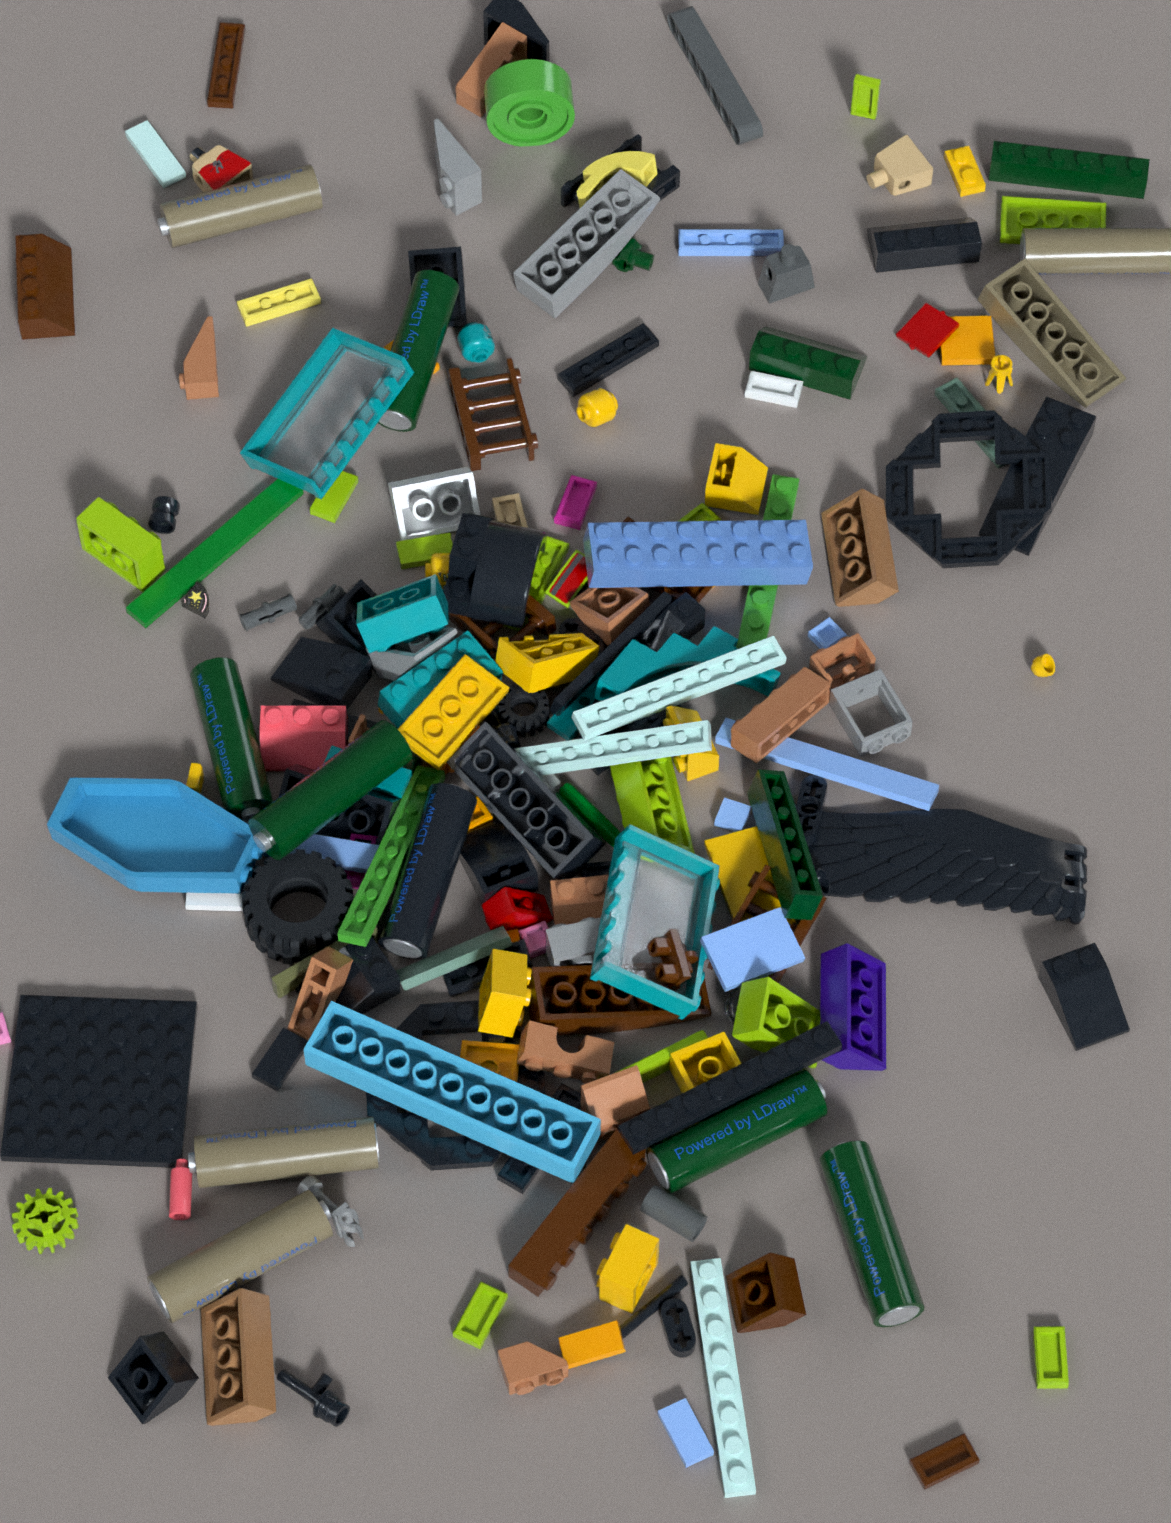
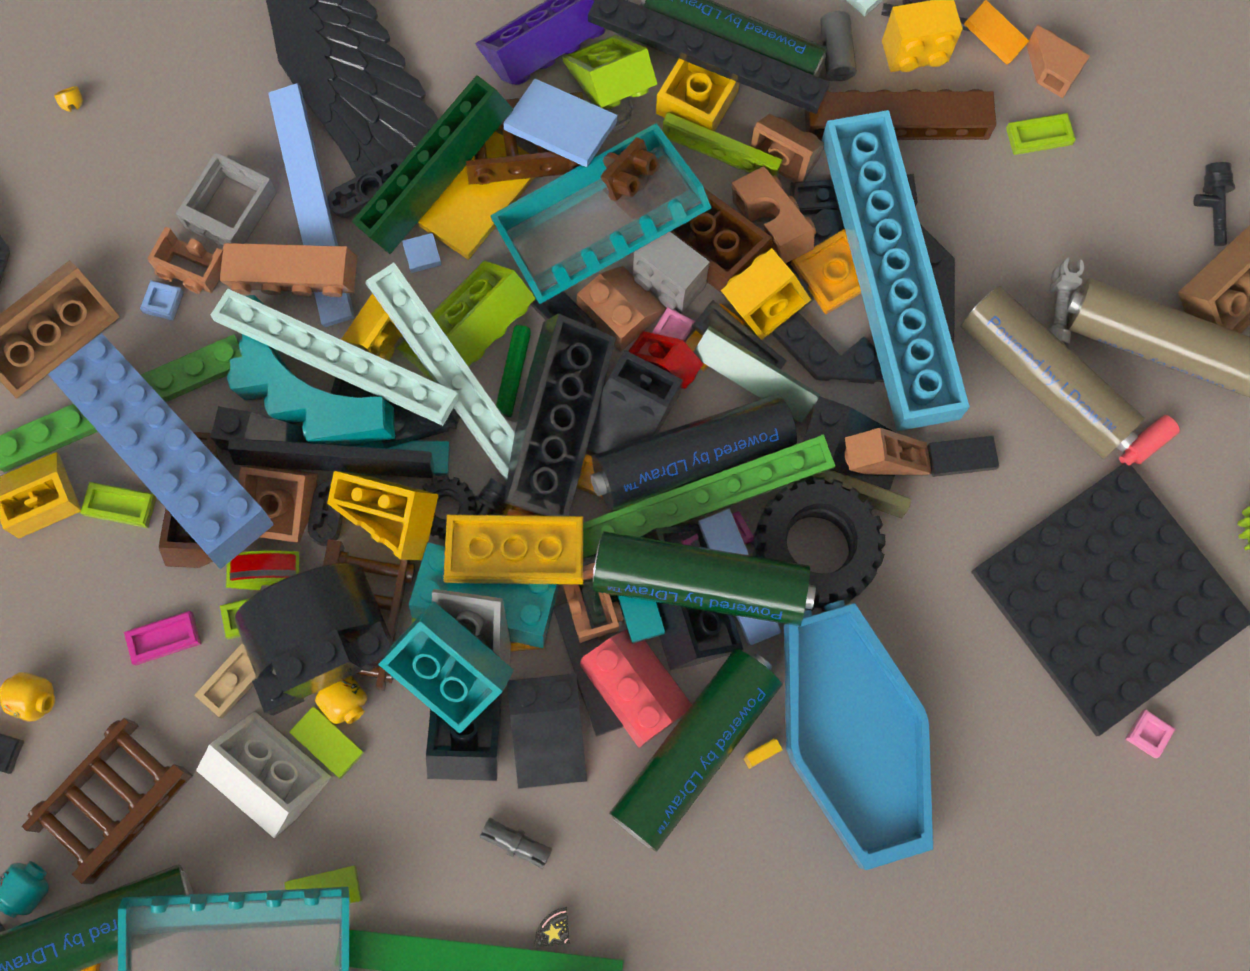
camera: 130 degrees left, 15 degrees up
(320, 606) = (471, 792): dark grey axle -> none

